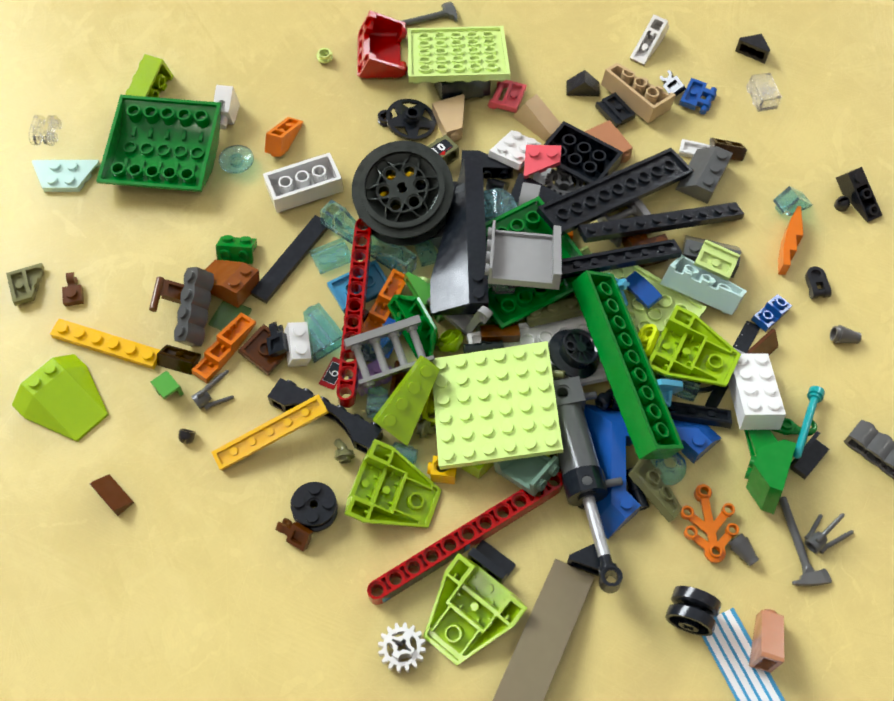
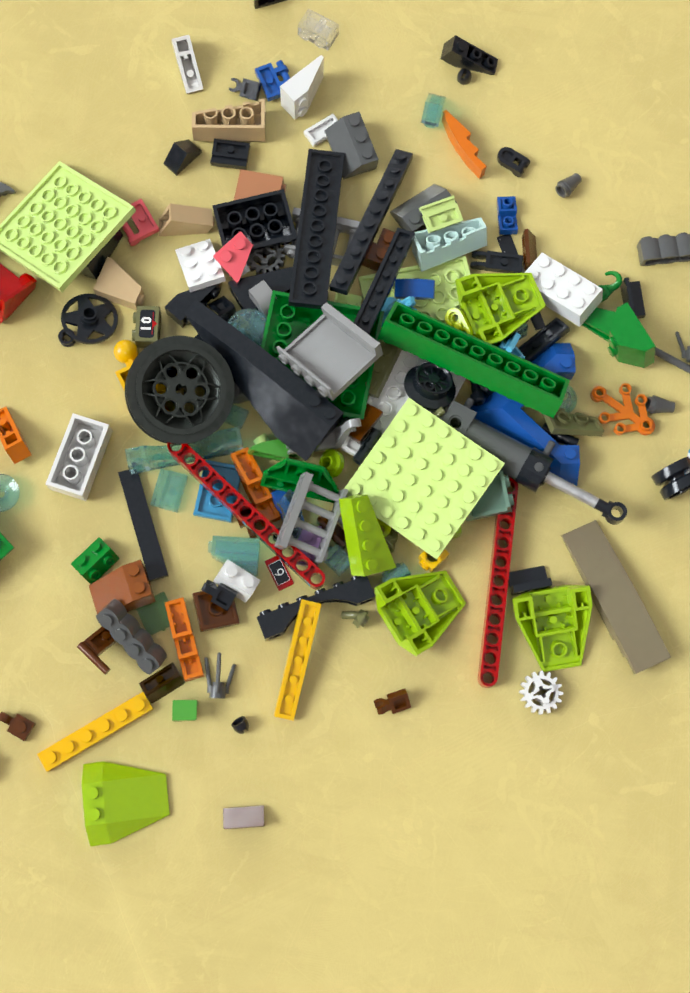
camera: 55 degrees left, 15 degrees up
(314, 495) = (387, 661): black wheel -> none
(585, 560) = (582, 514): black slope -> none
(711, 111) = (301, 88): none -> white slope
(728, 332) = (497, 262): none -> black hinge
(738, 149) = (345, 105): dark brown slope -> none
(814, 395) = (595, 251): teal piece -> none

